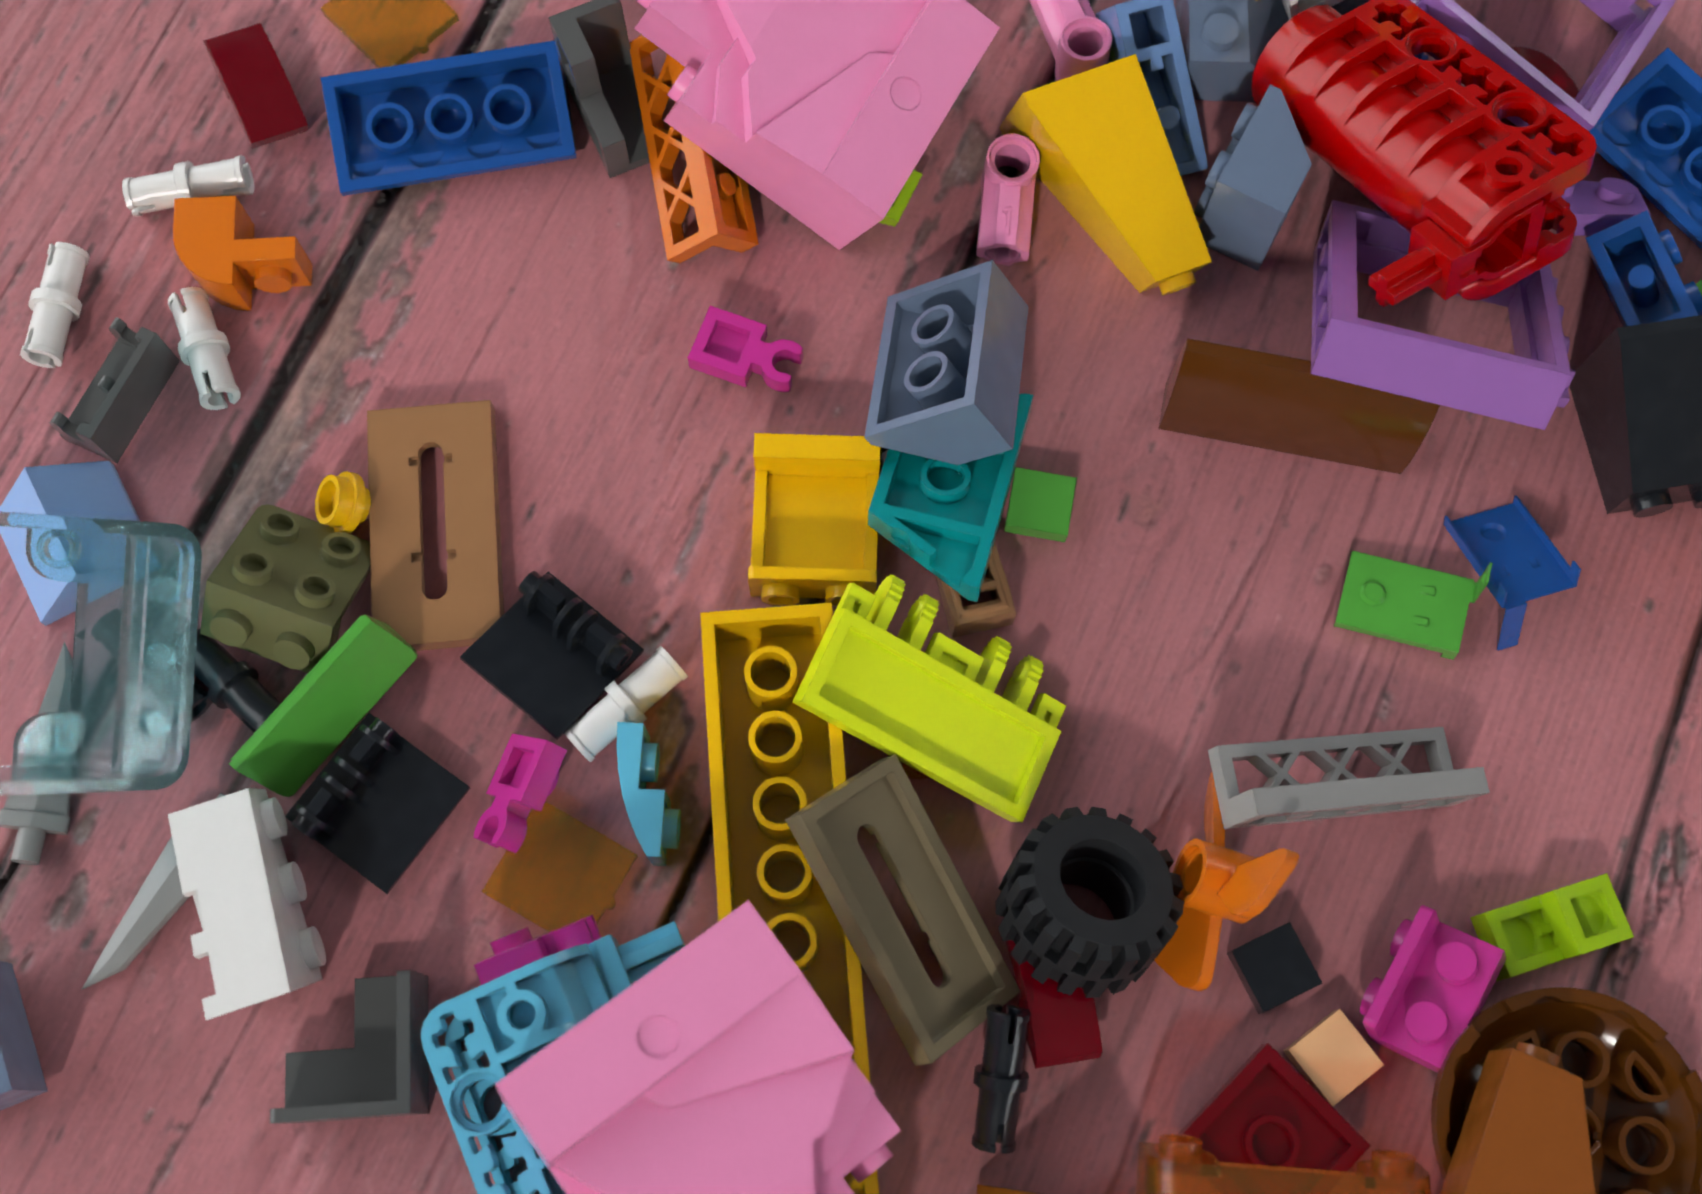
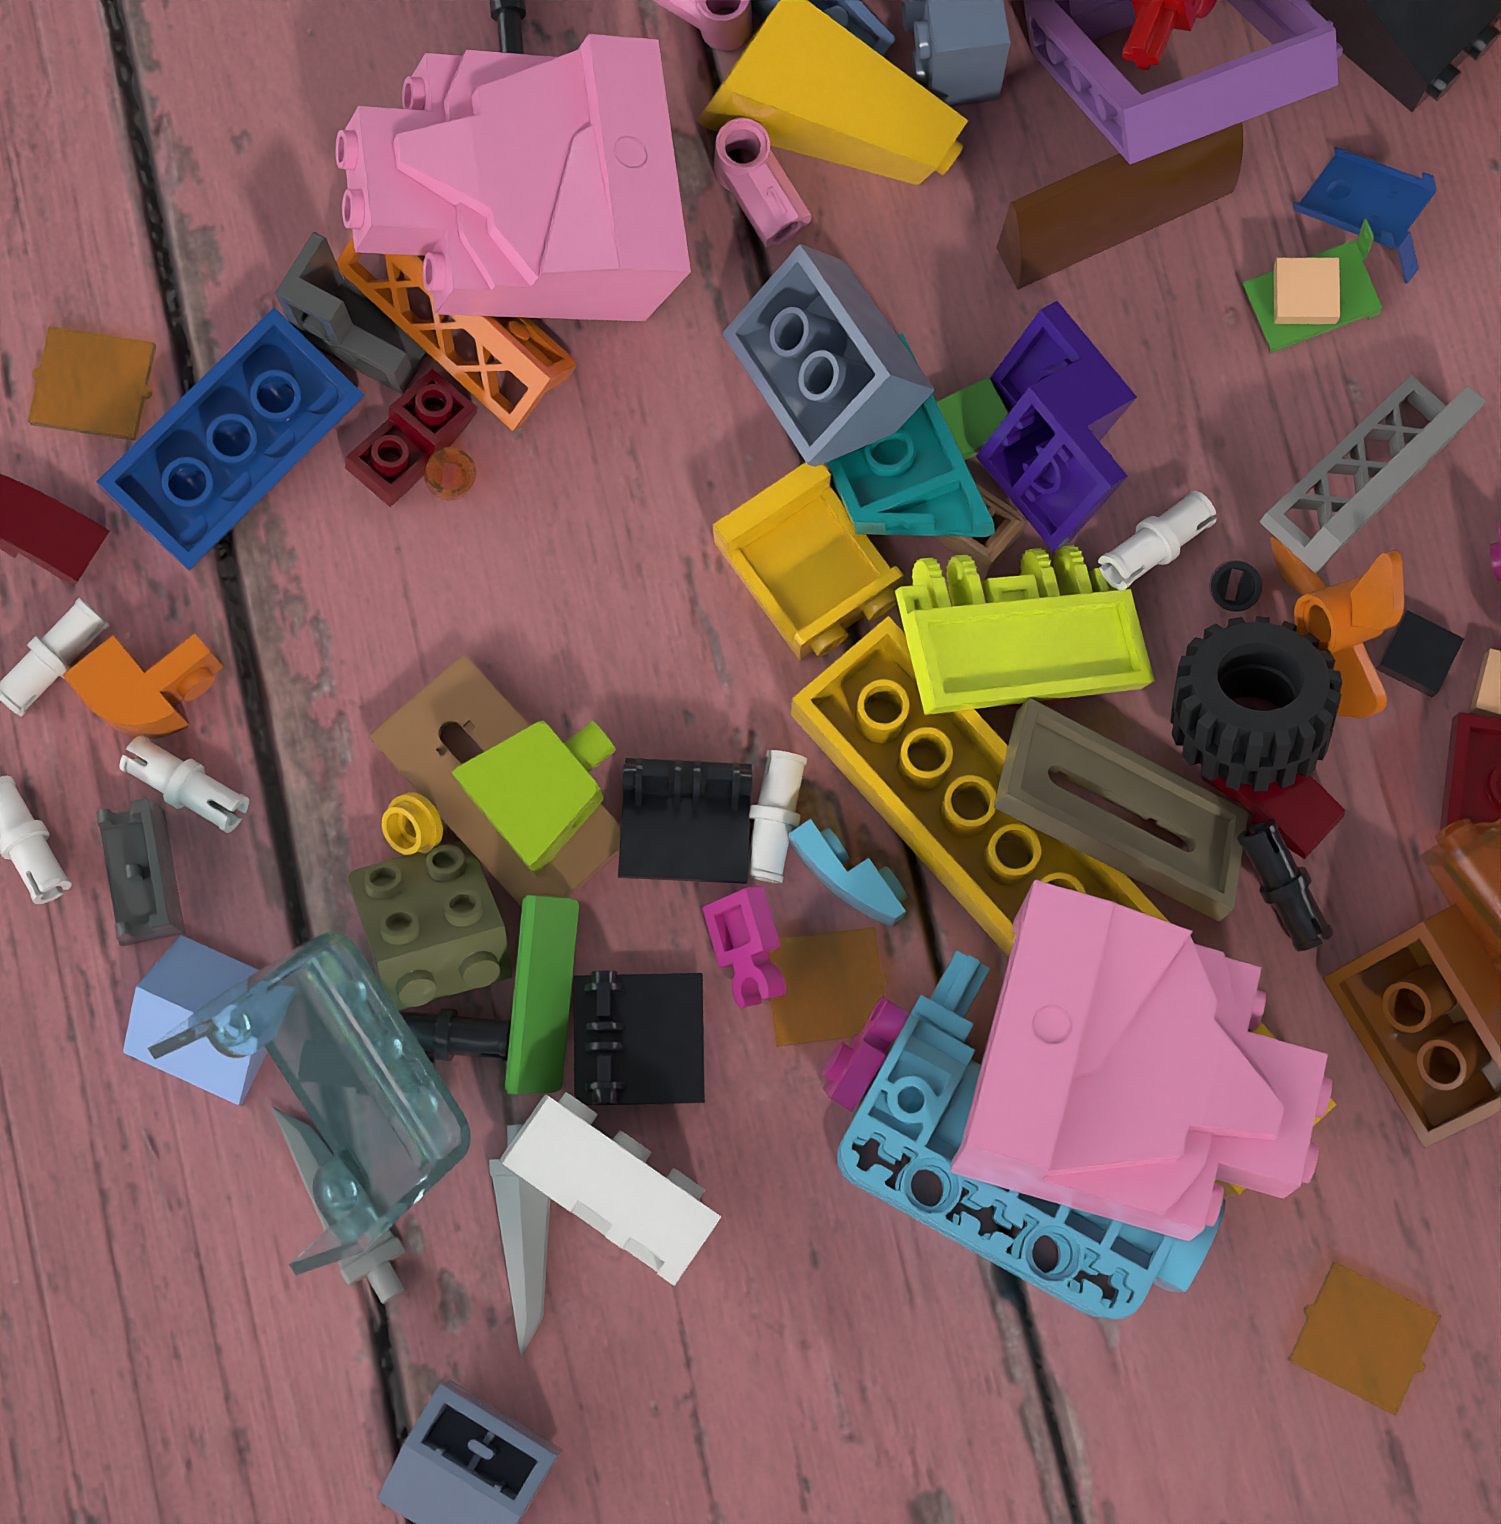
camera: 35 degrees left, 5 degrees up
(383, 1071) = (813, 1236): dark grey panel -> none
(449, 541) = (537, 788): none -> lime torso
(581, 248) = (463, 476): none -> clear orange hinge
(586, 215) = (418, 425): none -> dark red slope
(736, 346) = (630, 466): dark pink plate -> none
(1093, 549) = (1050, 443): none -> dark purple bracket
(1115, 707) = (1157, 540): none -> white pin
(1145, 780) = (1248, 589): none -> black hinge
(1400, 592) = (1306, 291): none -> light nougat tile

